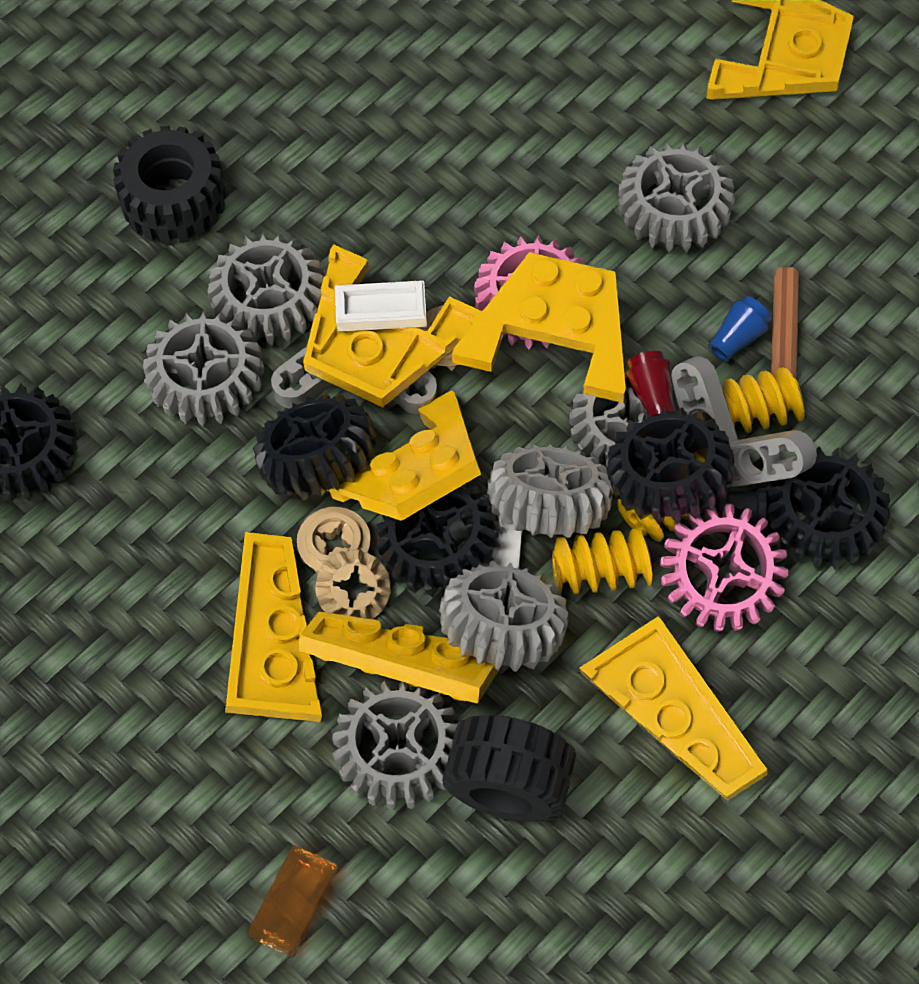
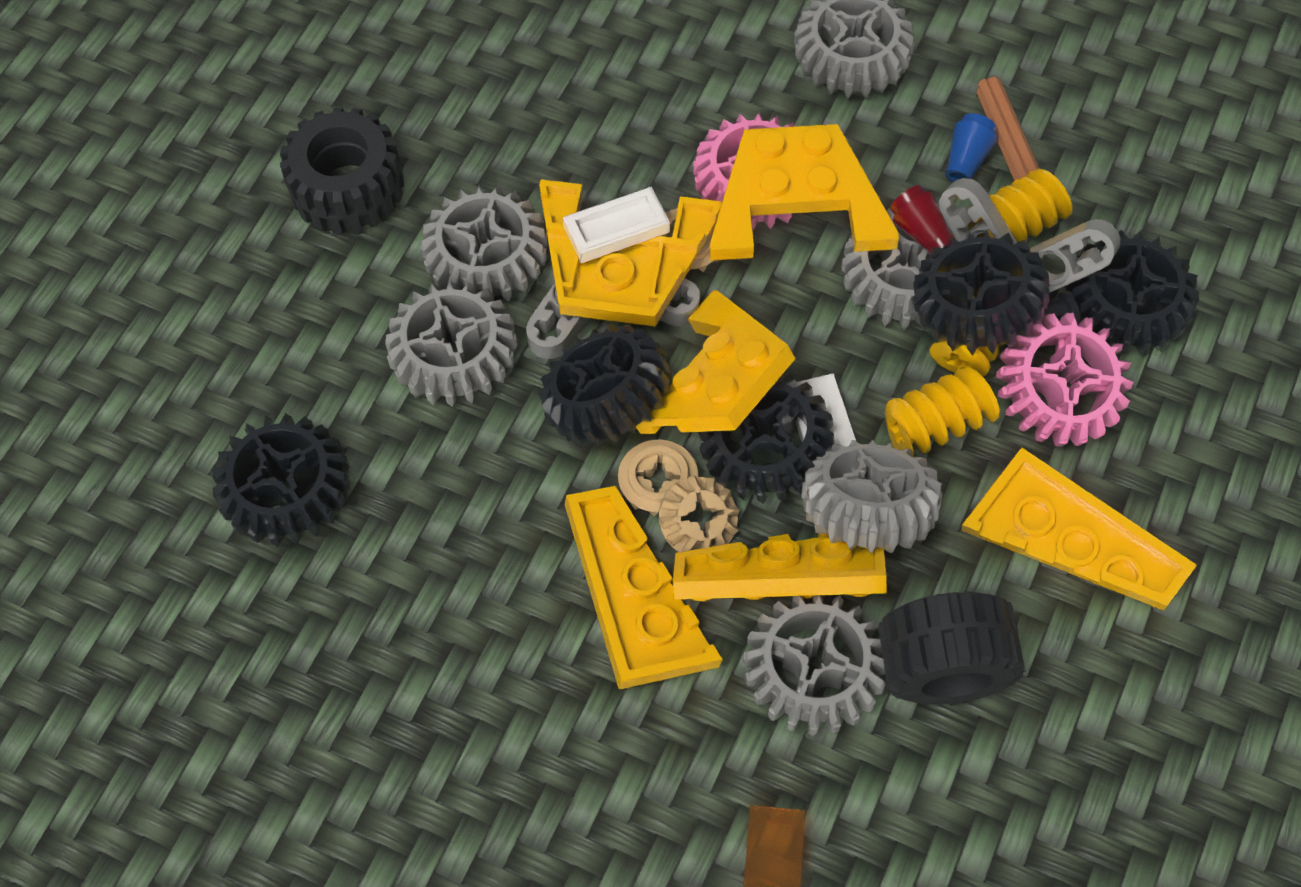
camera: 20 degrees left, 0 degrees up
(550, 490) = (863, 356): light grey gear -> none

